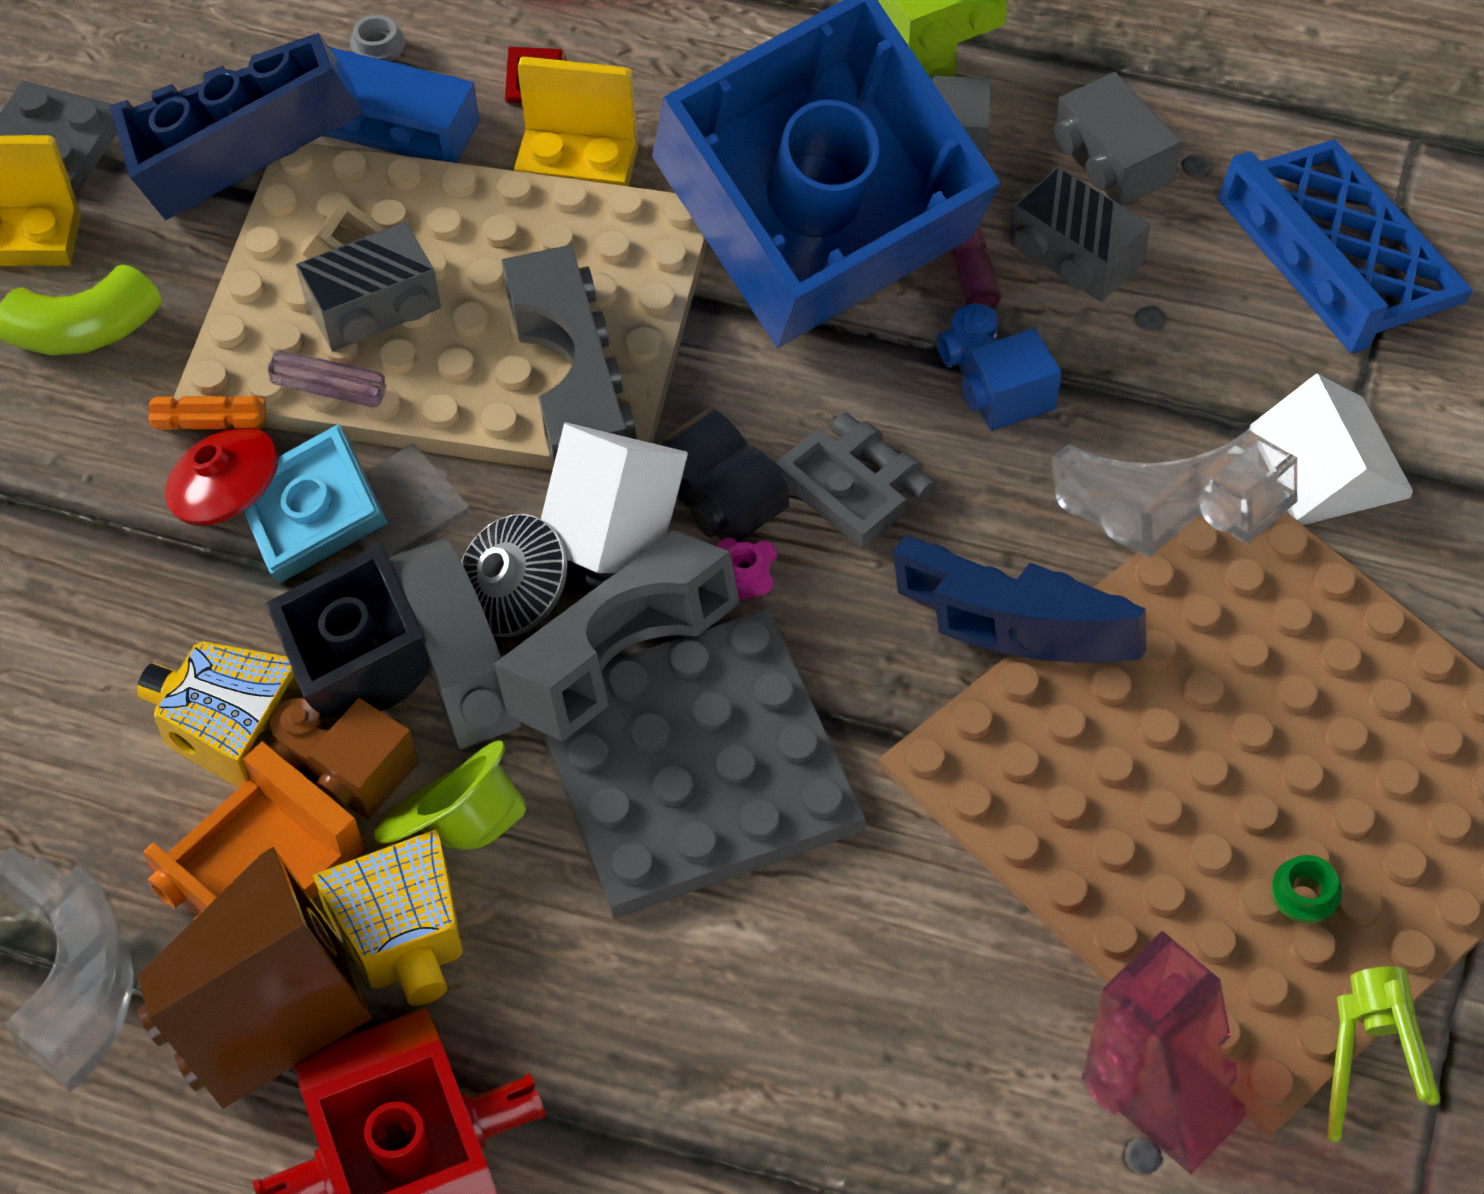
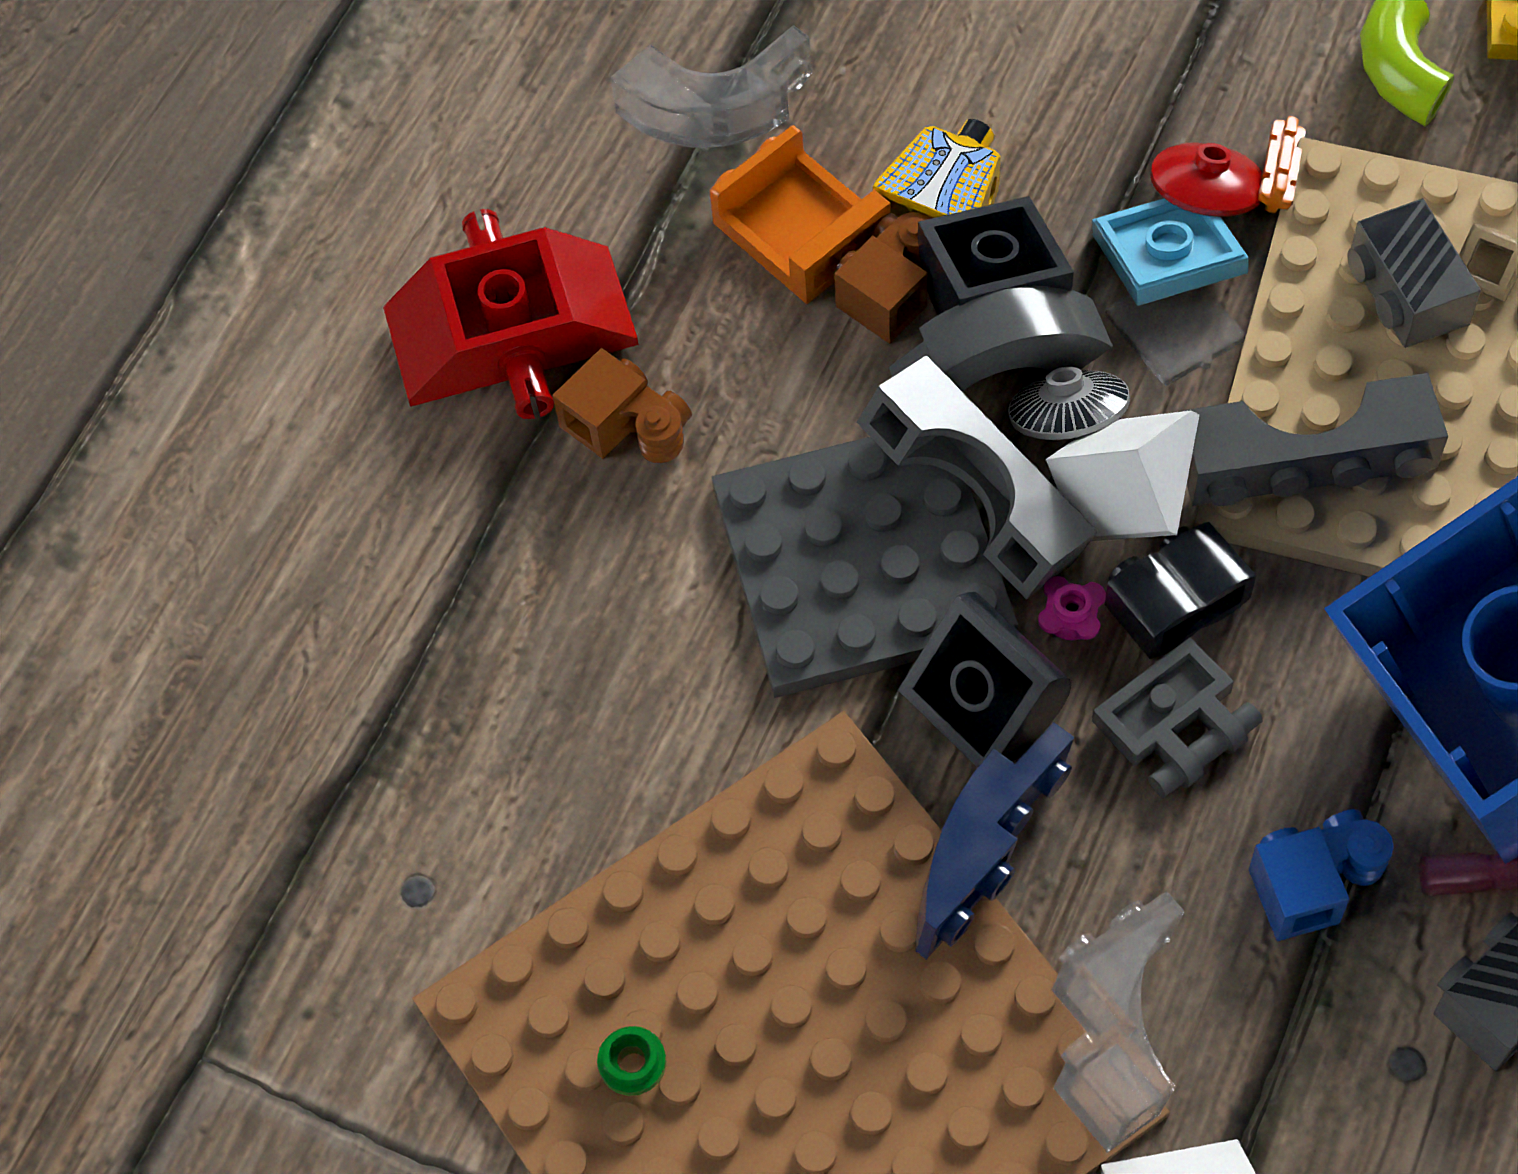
camera: 100 degrees right, 5 degrees up
(251, 985) = (658, 202): reddish brown slope -> none
(327, 378) = (1303, 246): axle -> none
(396, 915) = (721, 316): yellow torso -> none
(465, 805) = (821, 355): lime piece -> none
(516, 1017) = (613, 399): none -> dark orange brick
(851, 618) = (985, 682): none -> black brick
(1162, 1054) = (462, 878): clear pink wedge -> none
(1386, 1007) = (498, 1102): lime plant -> none

